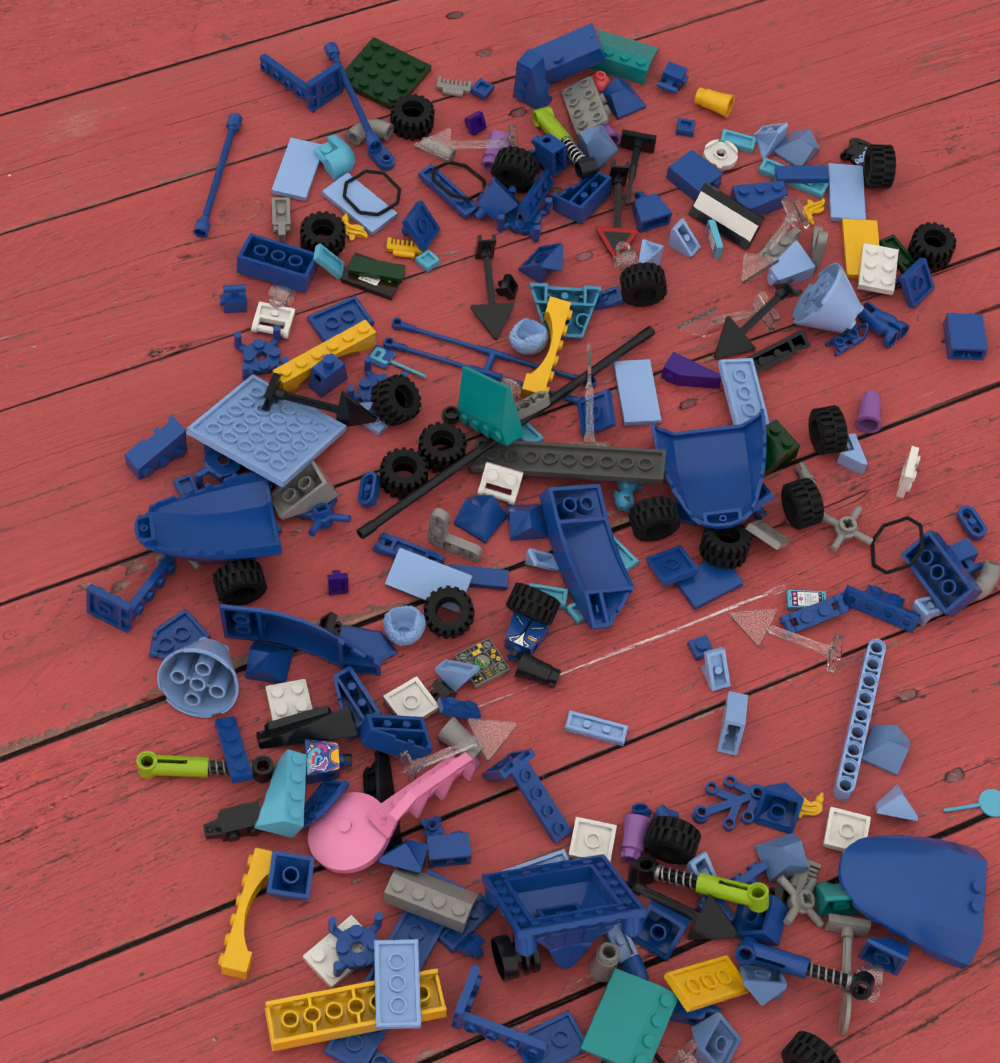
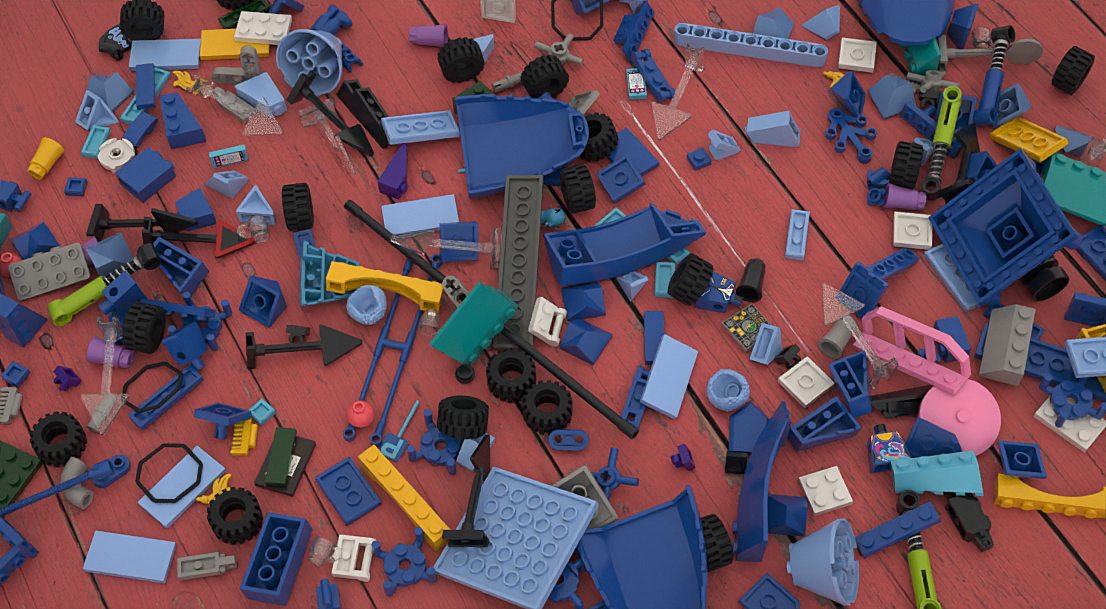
camera: 85 degrees left, 0 degrees up
(308, 725) = (859, 463): black wedge -> none
(327, 375) = (430, 488): blue torso -> none
(328, 261) = (274, 503): medium azure tile -> none
(336, 156) = (114, 515): medium azure brick -> none
(406, 855) = (981, 364): blue slope -> none
(413, 328) = (360, 414): none -> coral brick
(440, 538) = (621, 356): light grey beam -> none
(443, 596) = (716, 343): black tyre -> none
(457, 708) = (808, 338): blue plate -> none
(471, 946) = (1042, 314): blue tile -> none
(731, 216) = (207, 135): tile -> none
(751, 171) = (137, 130): none -> blue slope

